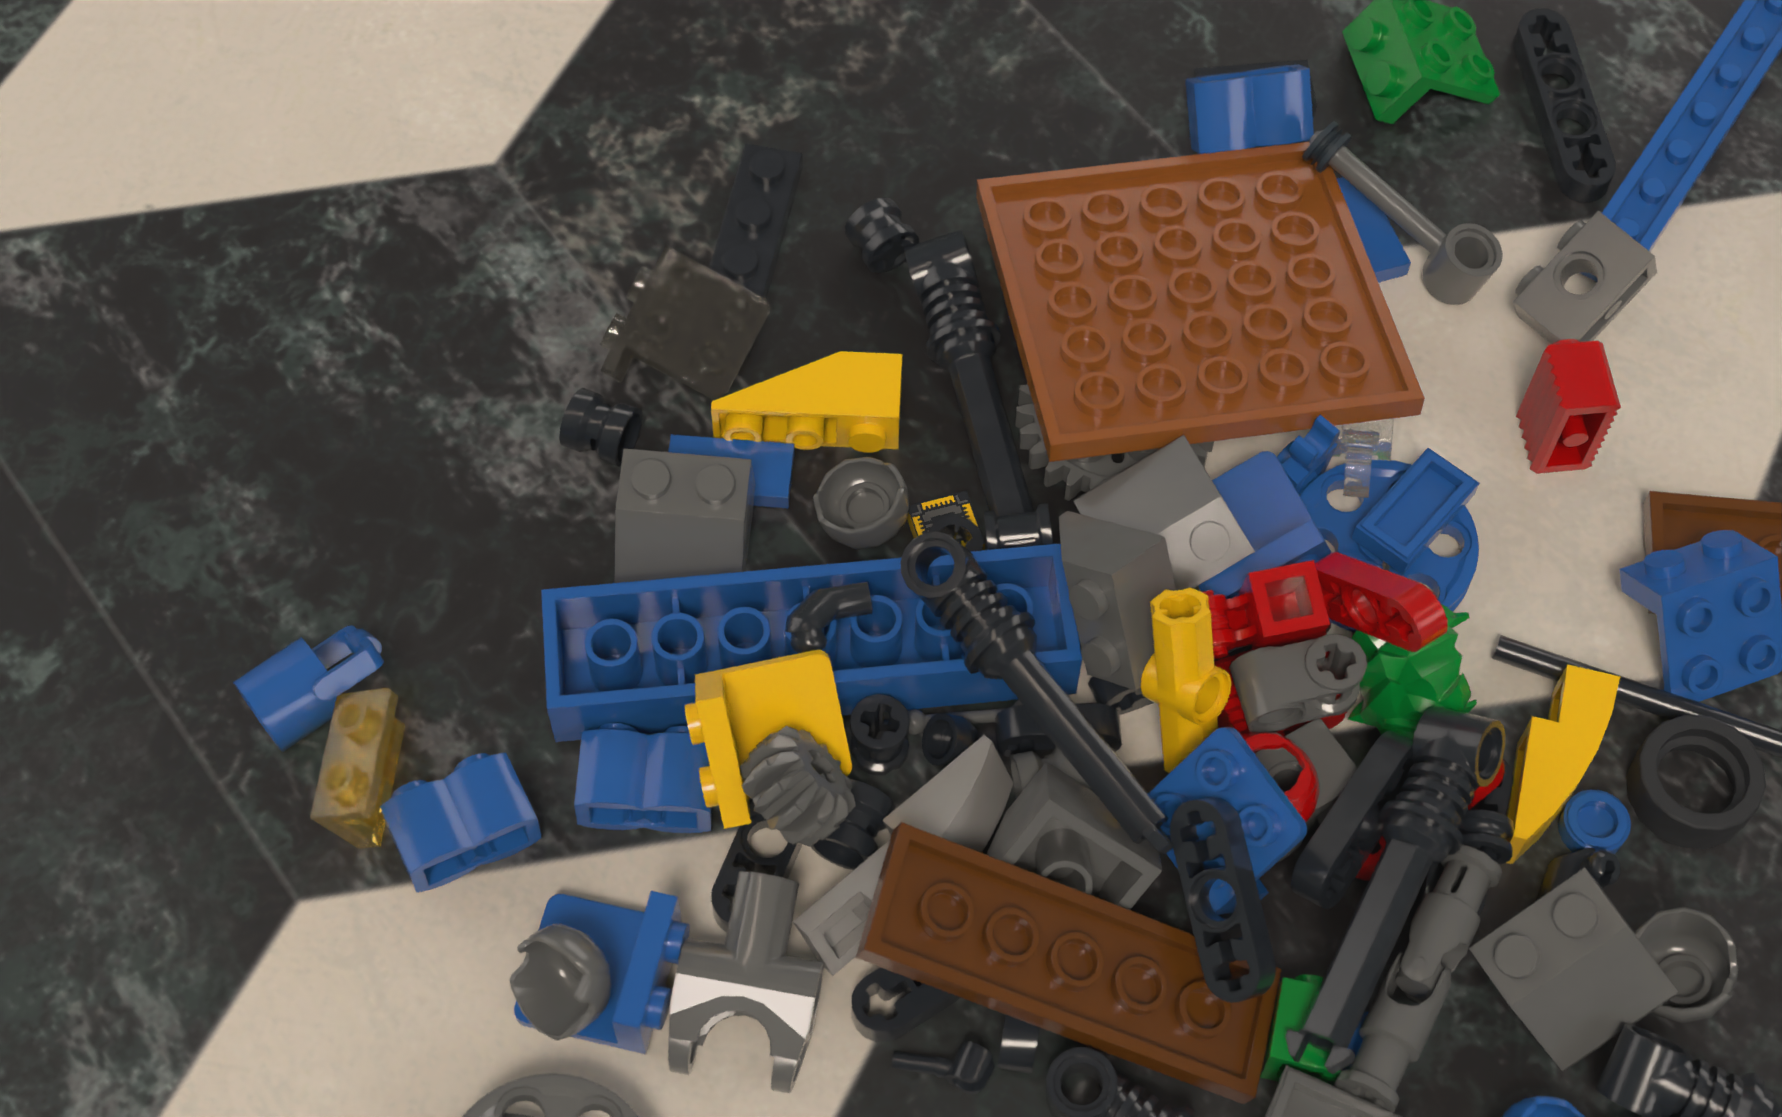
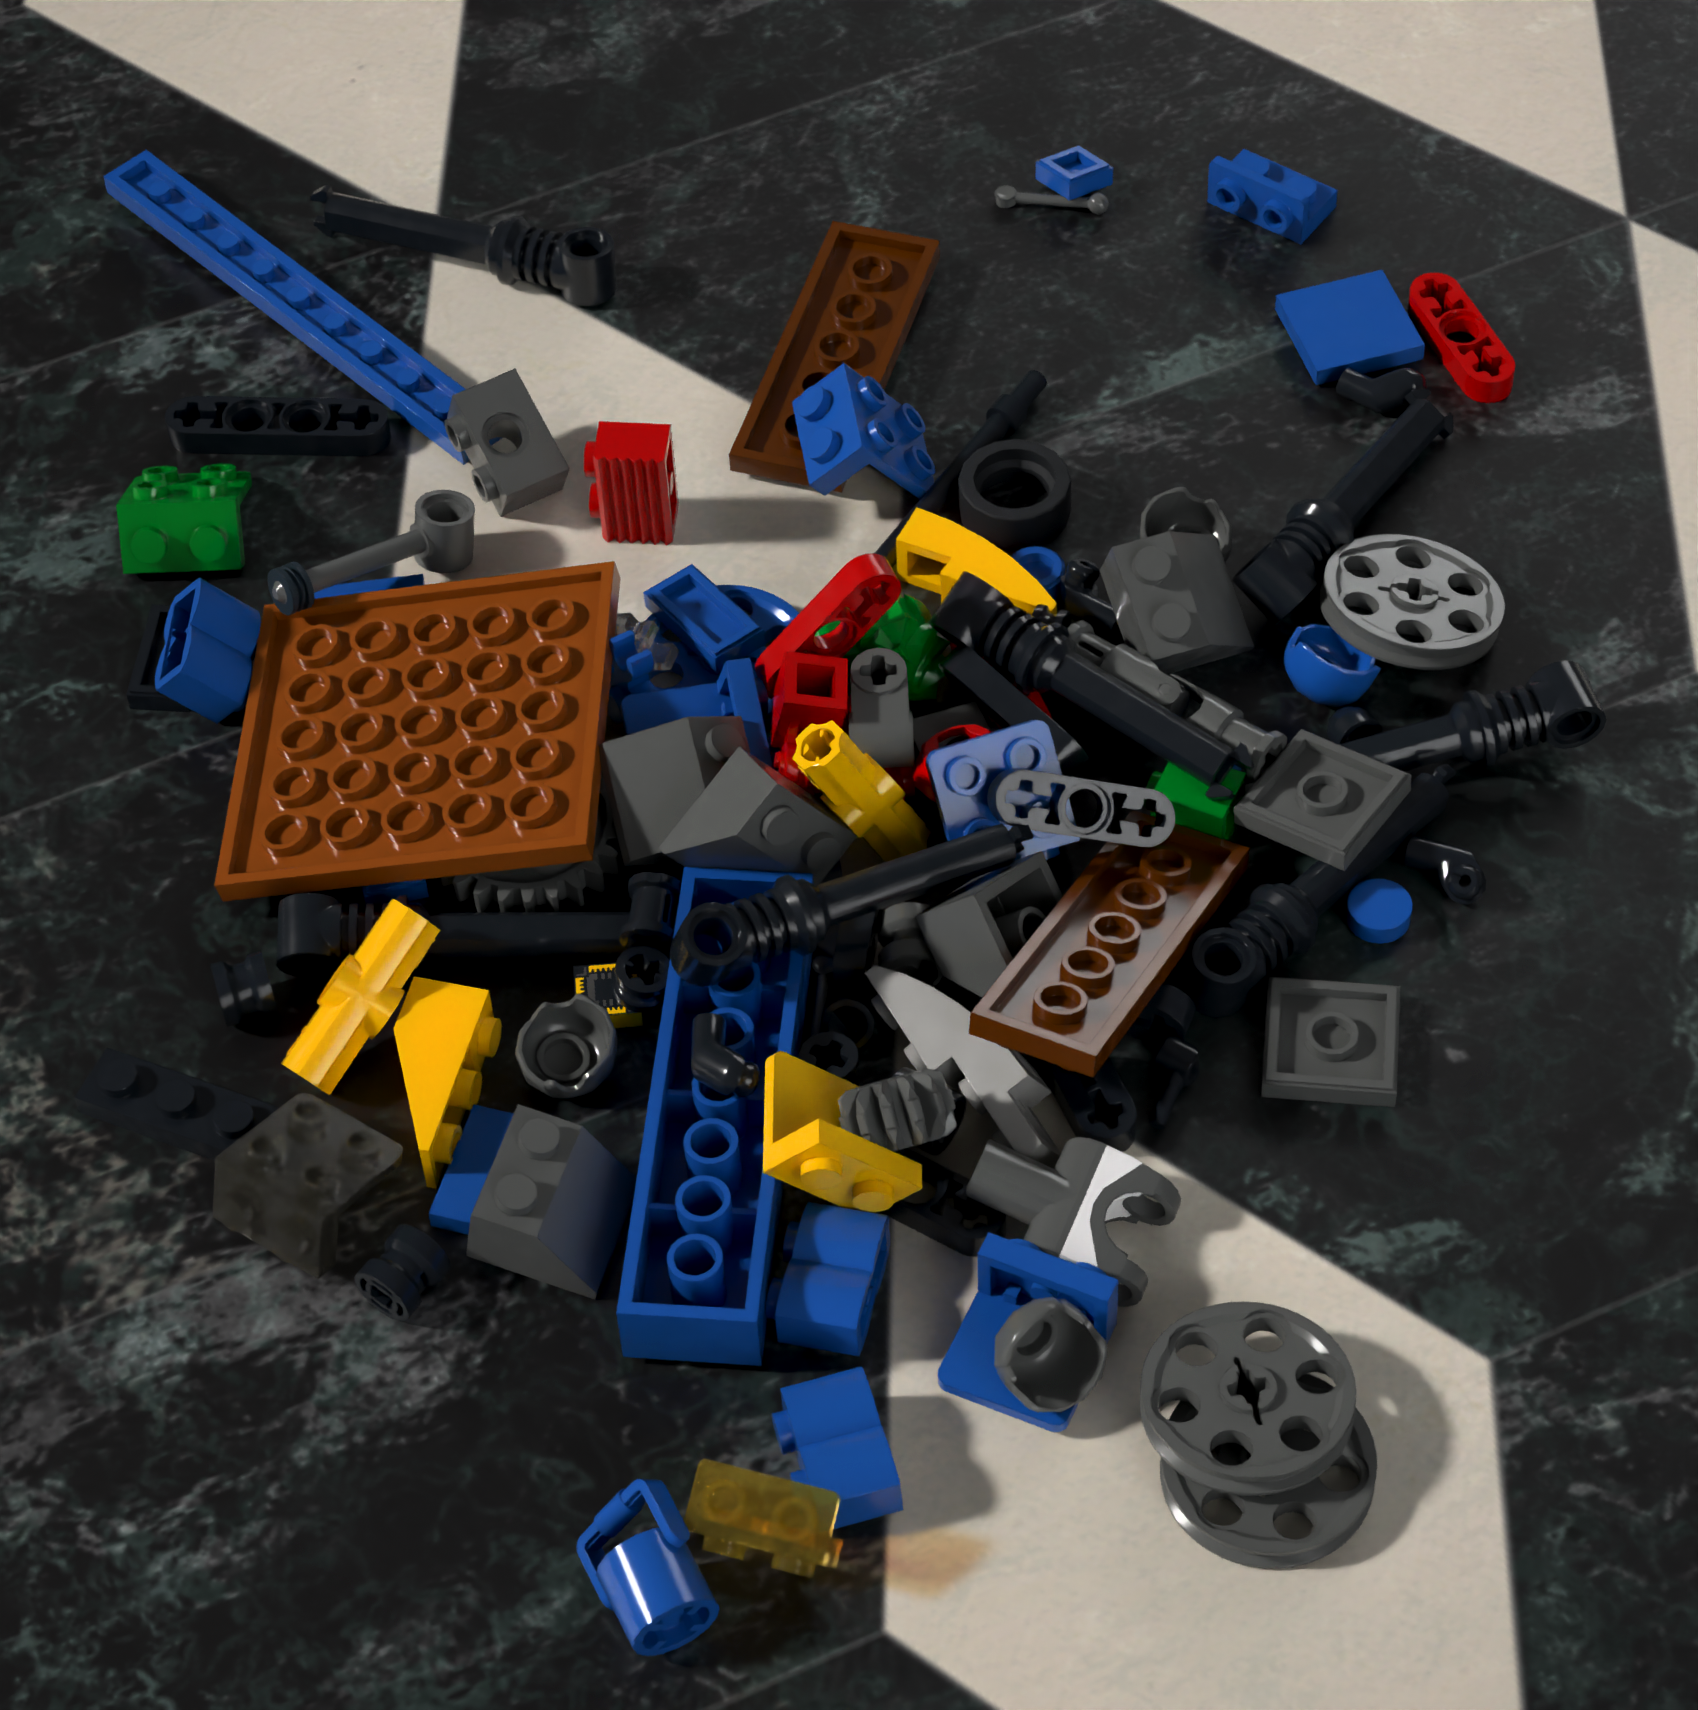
camera: 75 degrees left, 10 degrees down
(872, 317) = (361, 996): none -> yellow piece

